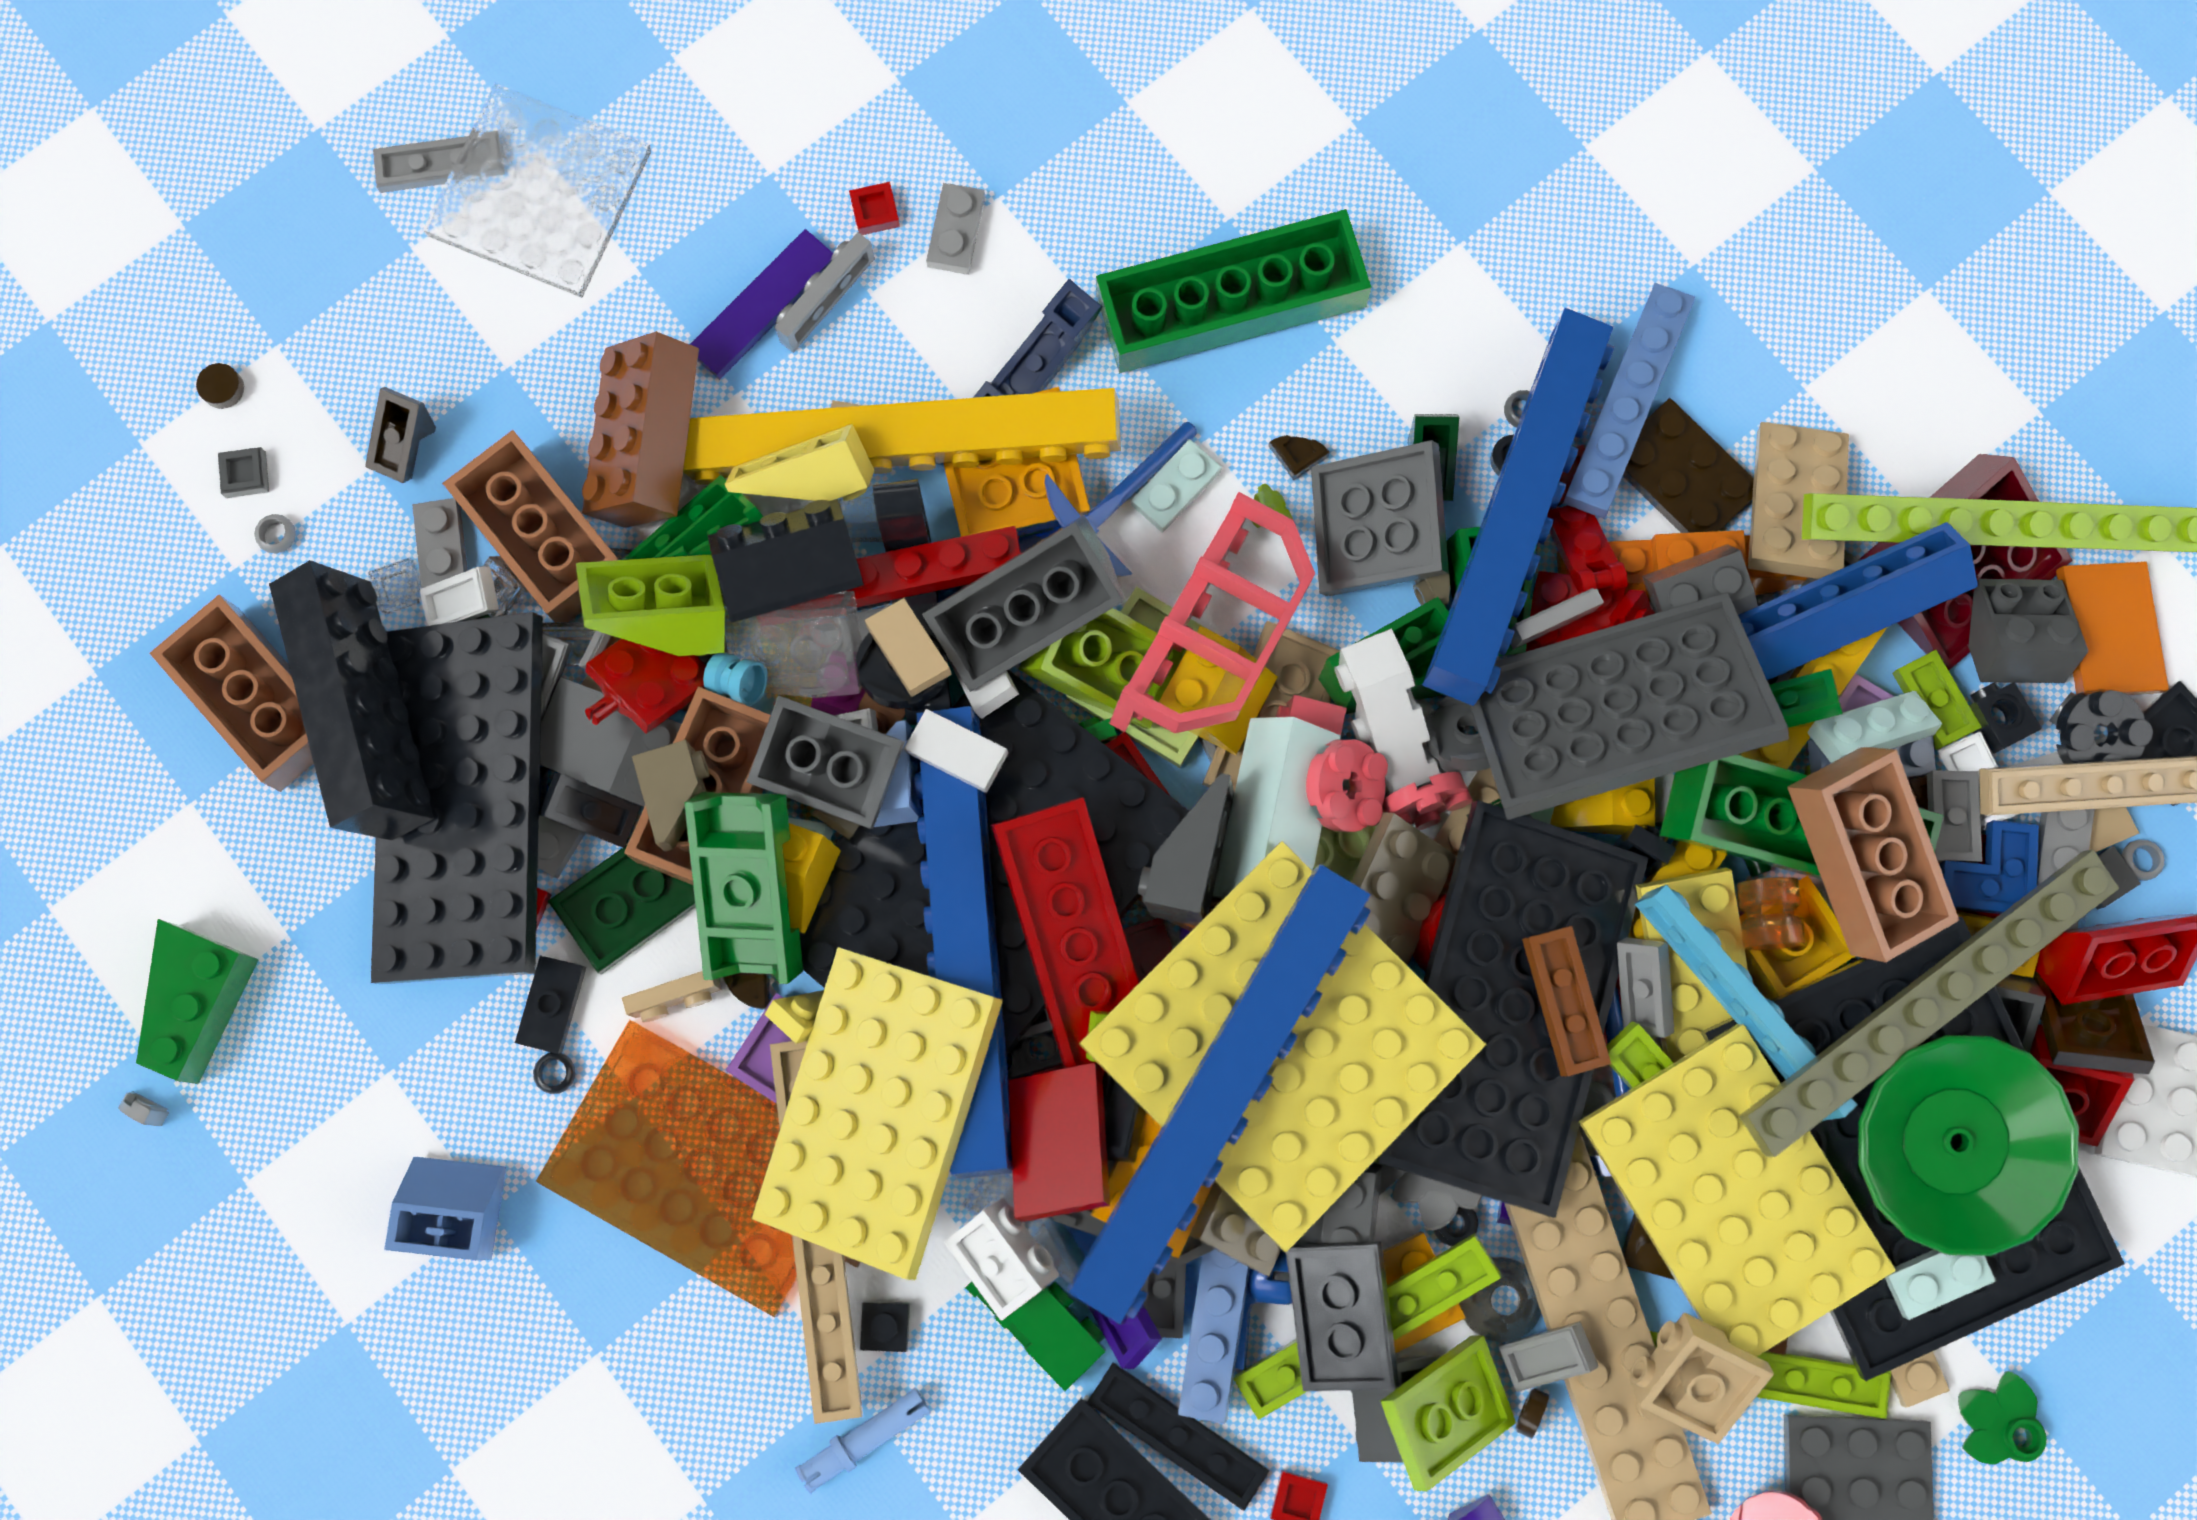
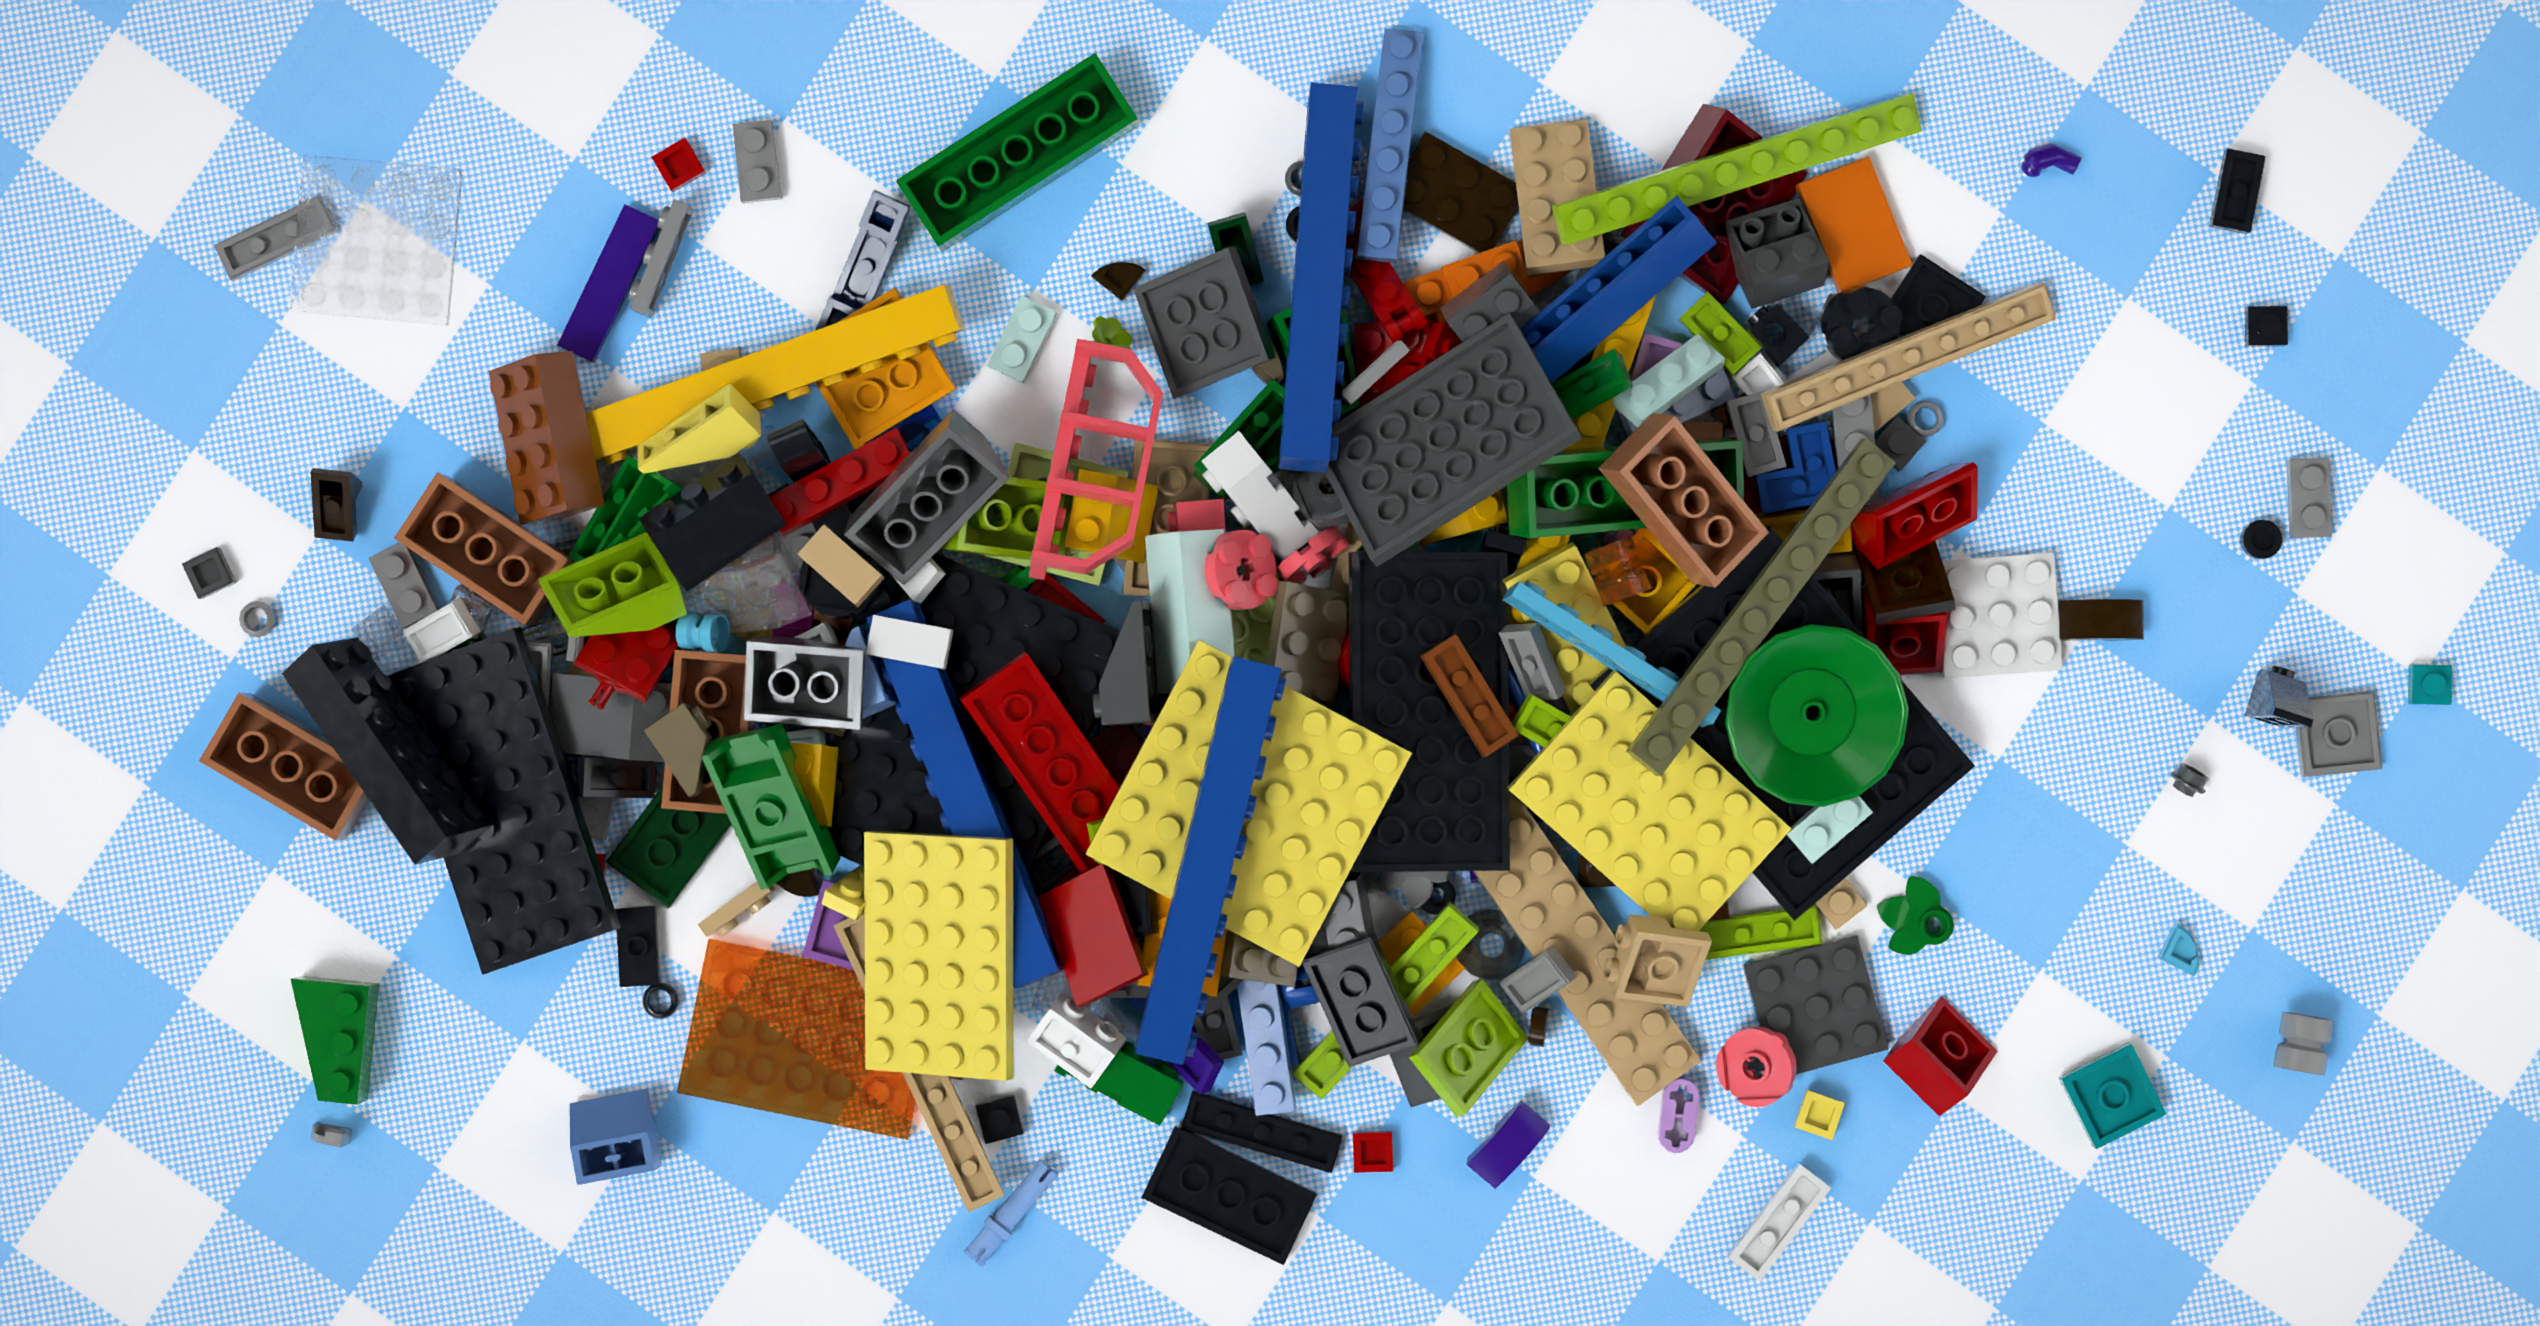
camera: 10 degrees left, 10 degrees up
(220, 385) = (159, 502): dark brown tile -> none
(1066, 513) = (957, 401): blue piece -> none

